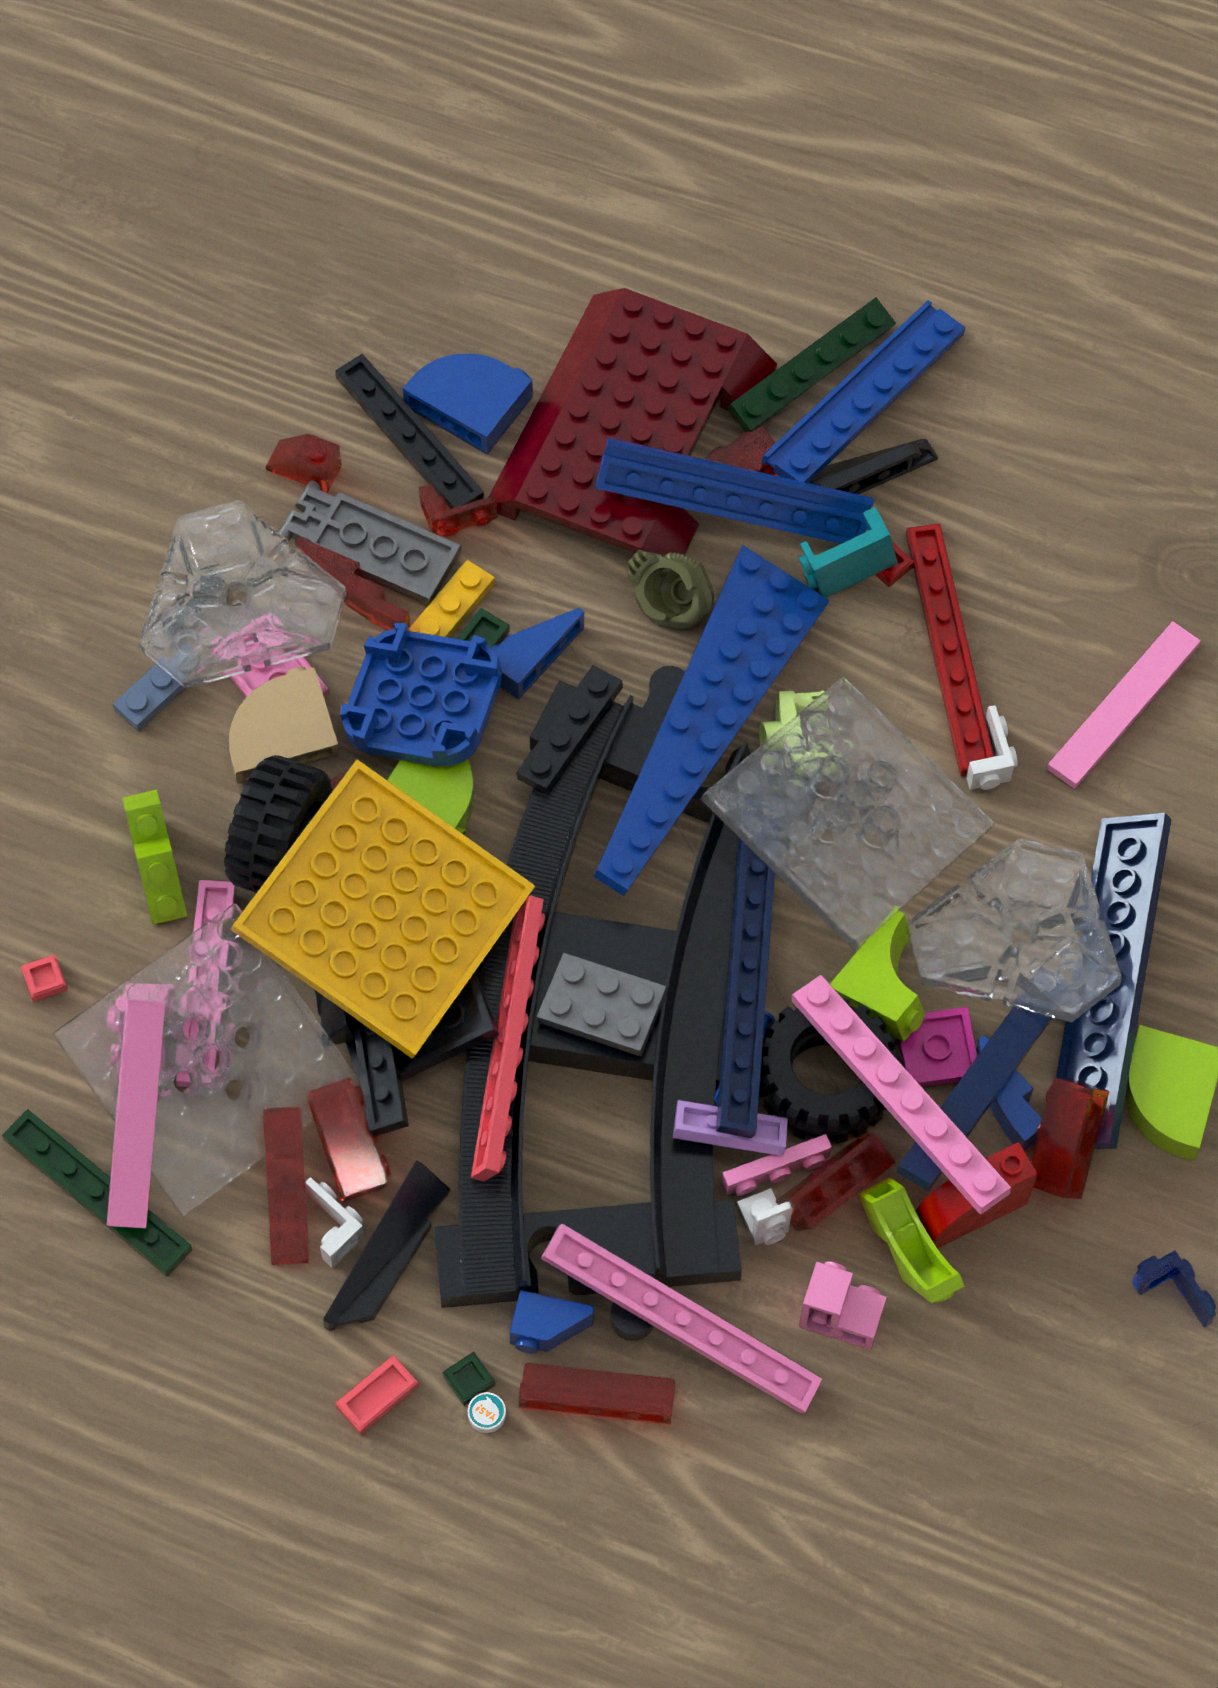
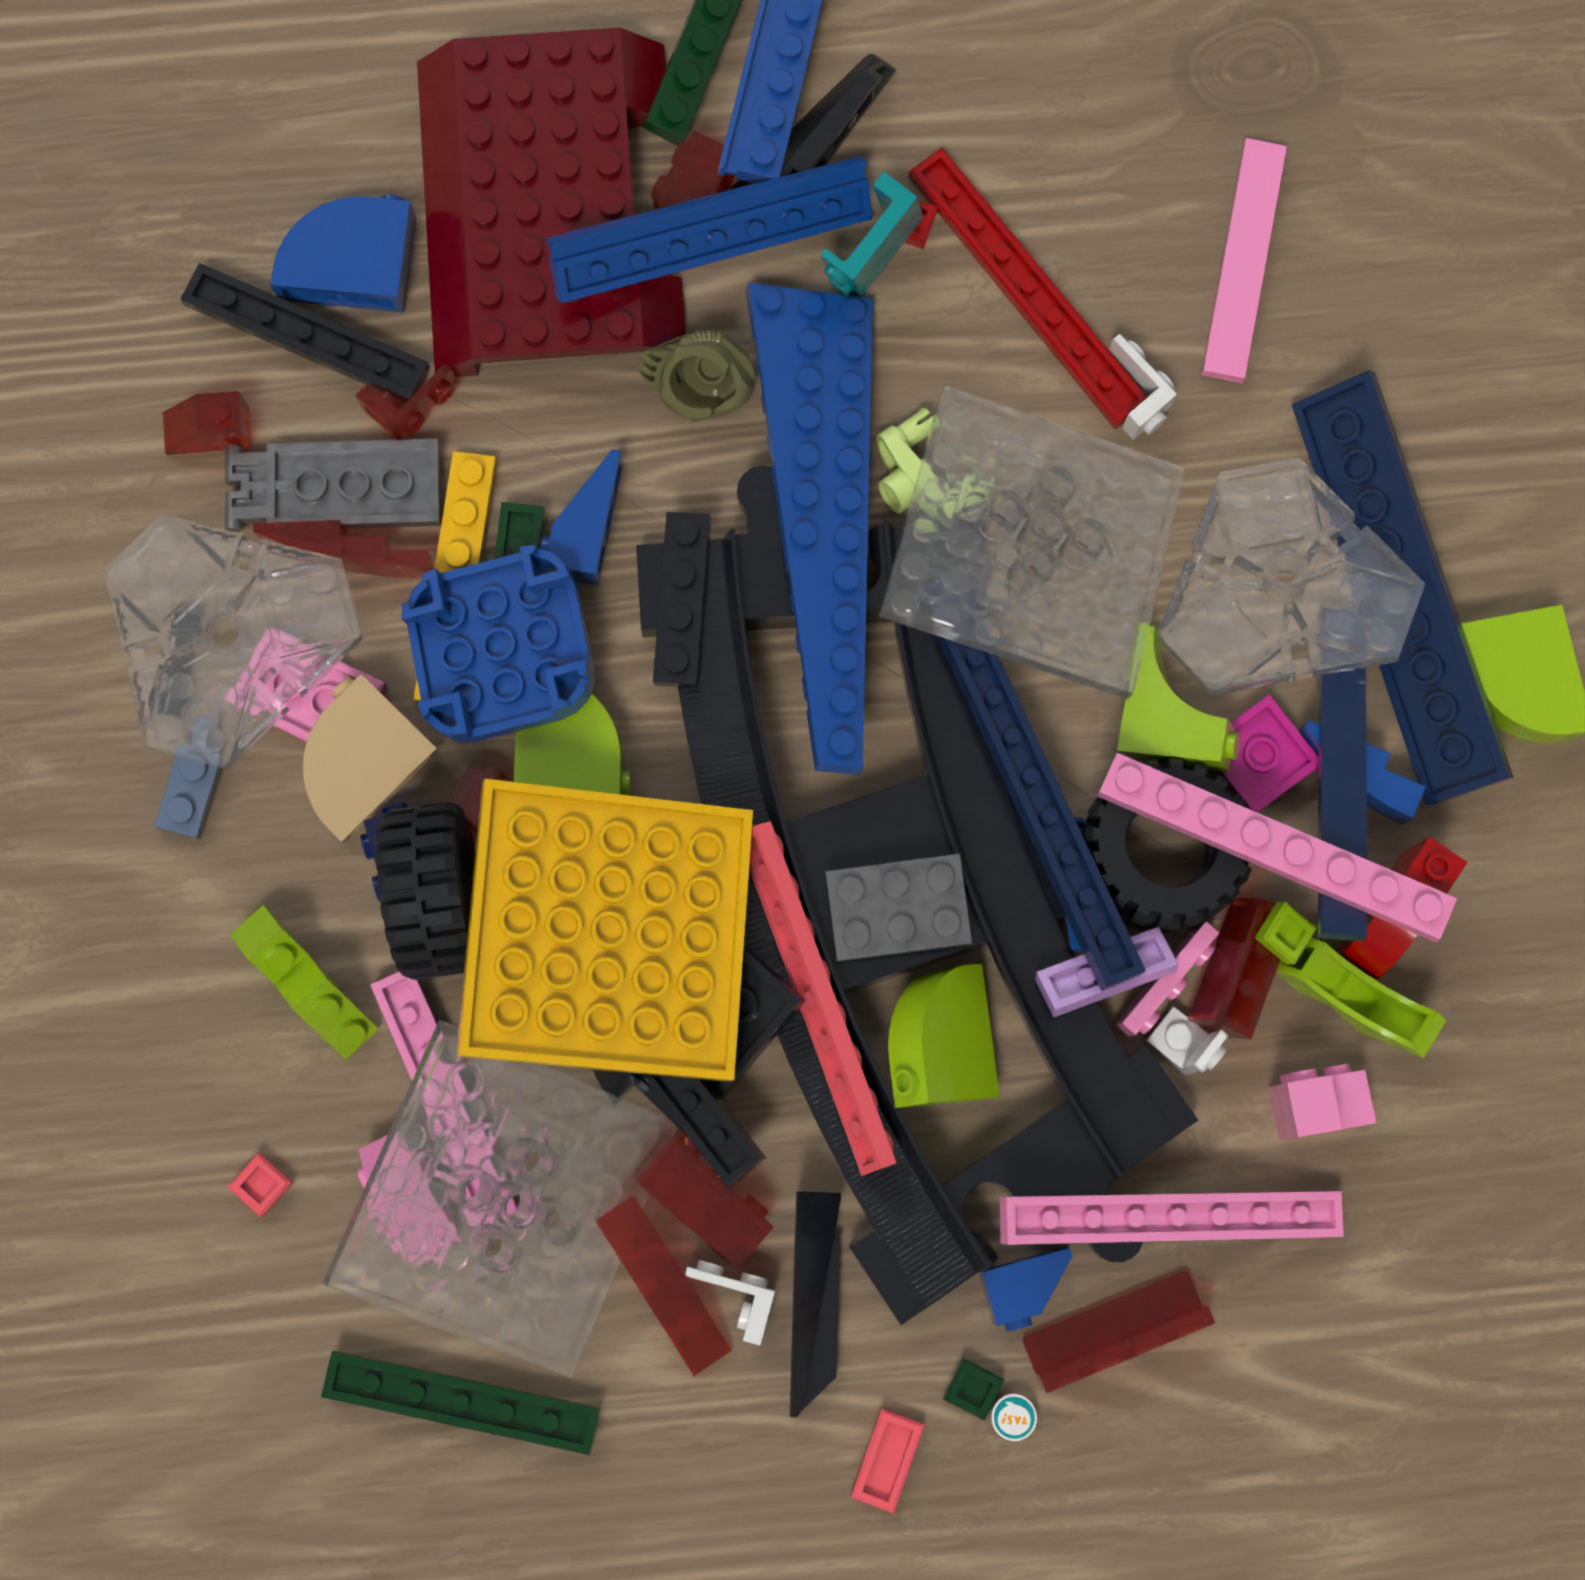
camera: 30 degrees left, 15 degrees up
(135, 1114) = (463, 1311): bright pink tile -> none
(583, 1119) = (943, 1040): none -> lime brick
(878, 1167) = (1285, 933): none -> lime tile
(1068, 1136) = (1460, 790): clear red brick -> none

